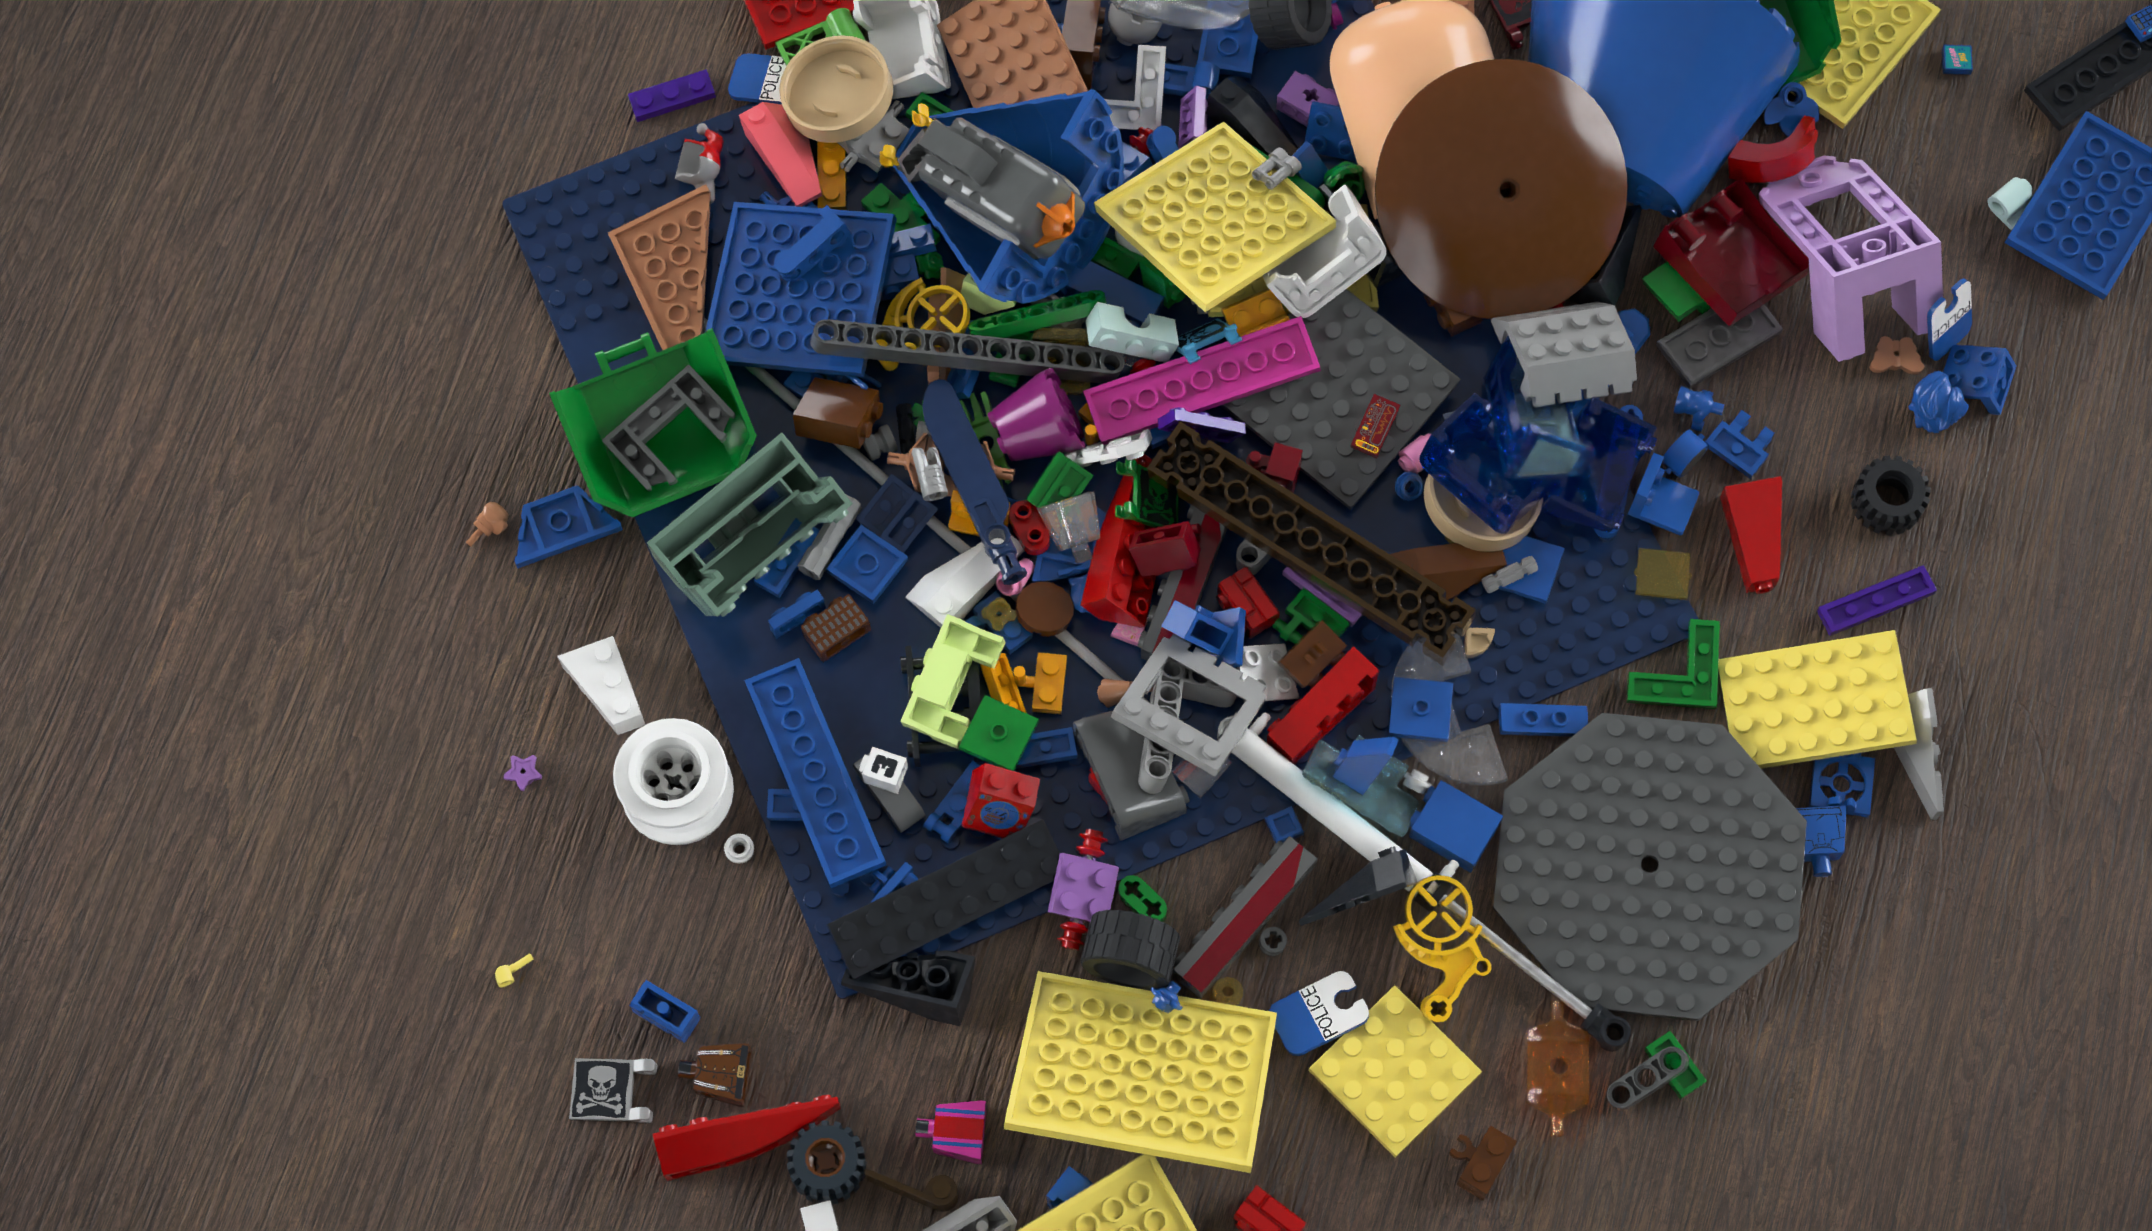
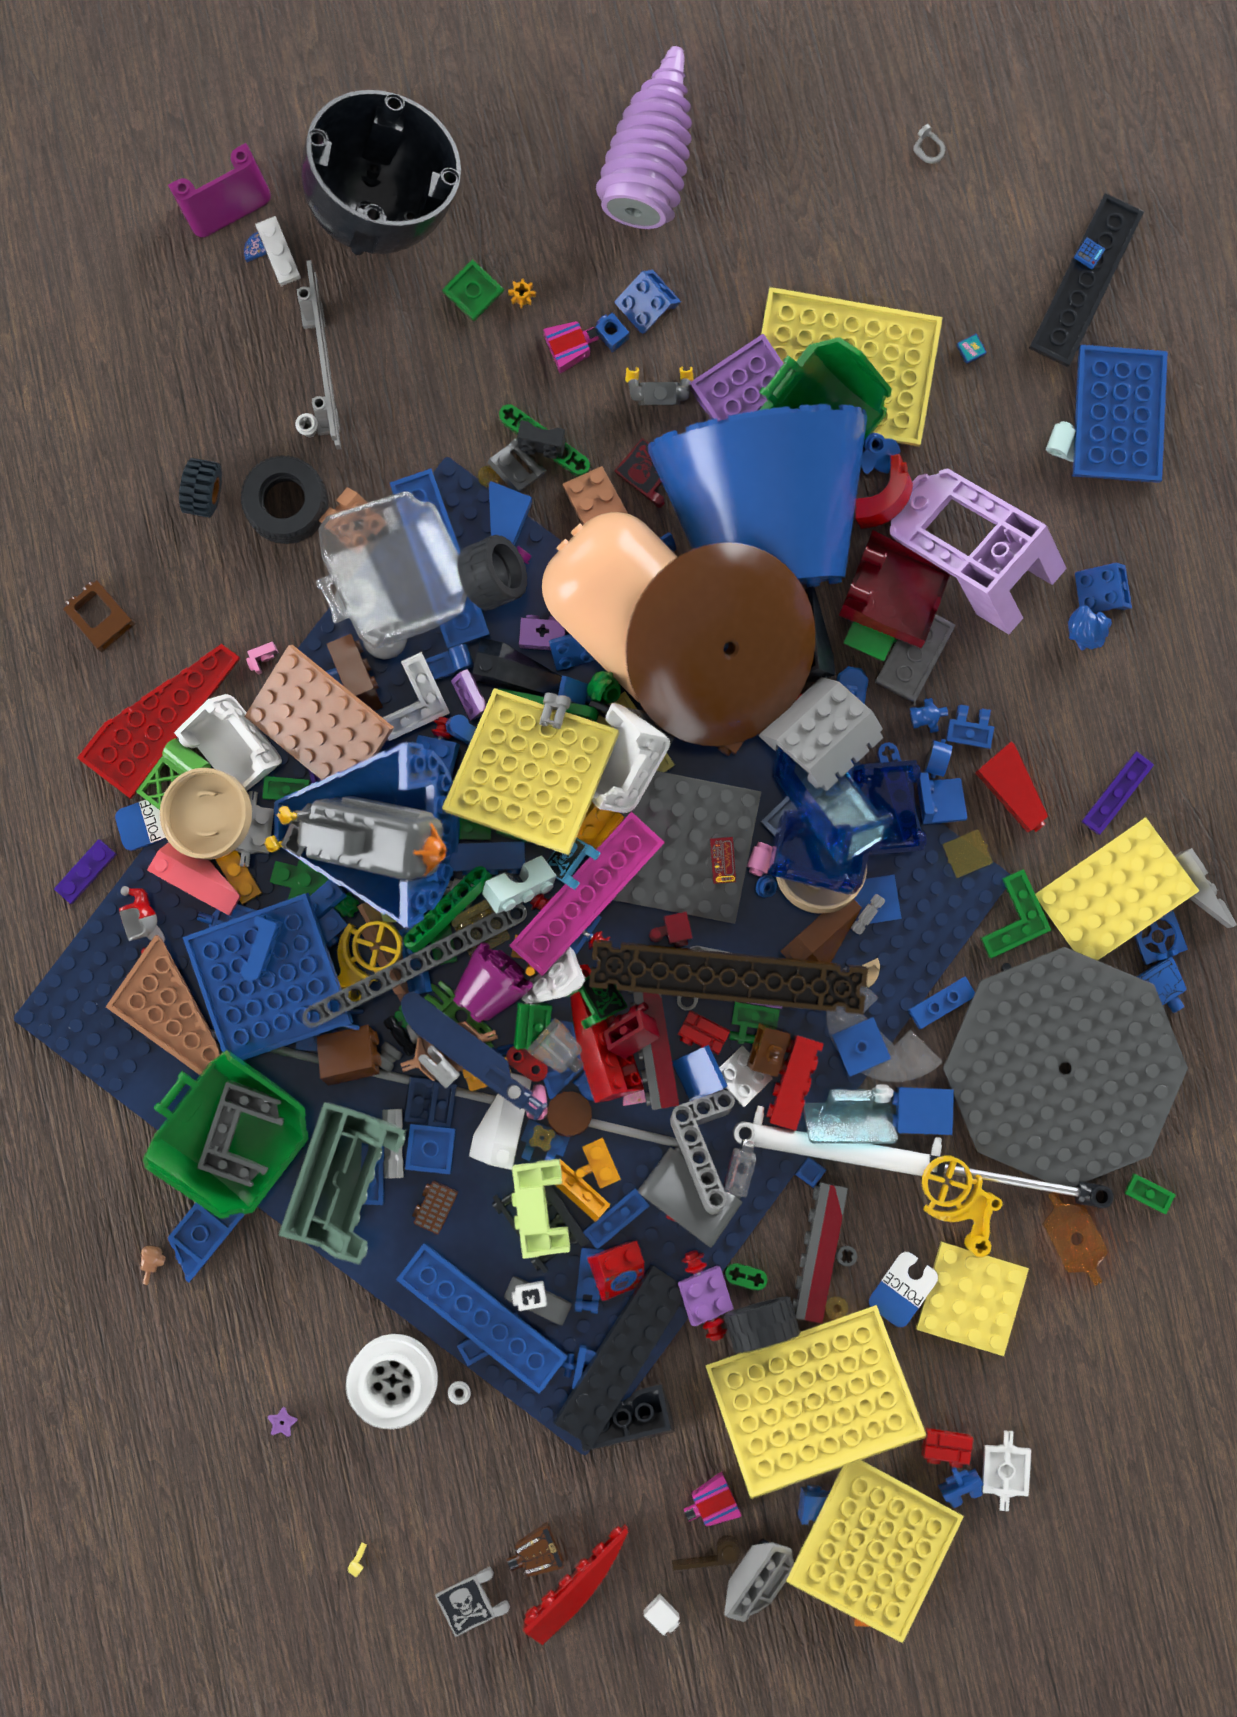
camera: 35 degrees left, 15 degrees up
(605, 682) = (302, 1332): white wedge -> none
(665, 1011) = (477, 1535): blue brick -> none
(788, 618) = (406, 1202): blue plate -> none
(826, 1162) = (642, 1573): black wheel -> none
(998, 733) = (591, 1225): green plate -> none
(1112, 691) = (649, 1147): nougat cone -> none
(1166, 998) = (803, 1341): blue plant -> none
(1174, 733) = (711, 1168): light grey hinge -> none
(1198, 627) = (684, 1079): blue brick -> none
(1208, 427) = (604, 925): dark purple plate -> none
(1363, 762) = (845, 1109): blue slope -> none
(1375, 880) = (899, 1189): black wedge -> none
(1484, 1161) = (1063, 1329): reddish brown brick -> none
(1632, 1079) = (1135, 1226): dark grey beam -> none
(1903, 478) = (1106, 703): black tyre -> none
(1906, 358) = (1050, 603): nougat animal -> none
(1952, 324) = (1068, 566): piece -> none

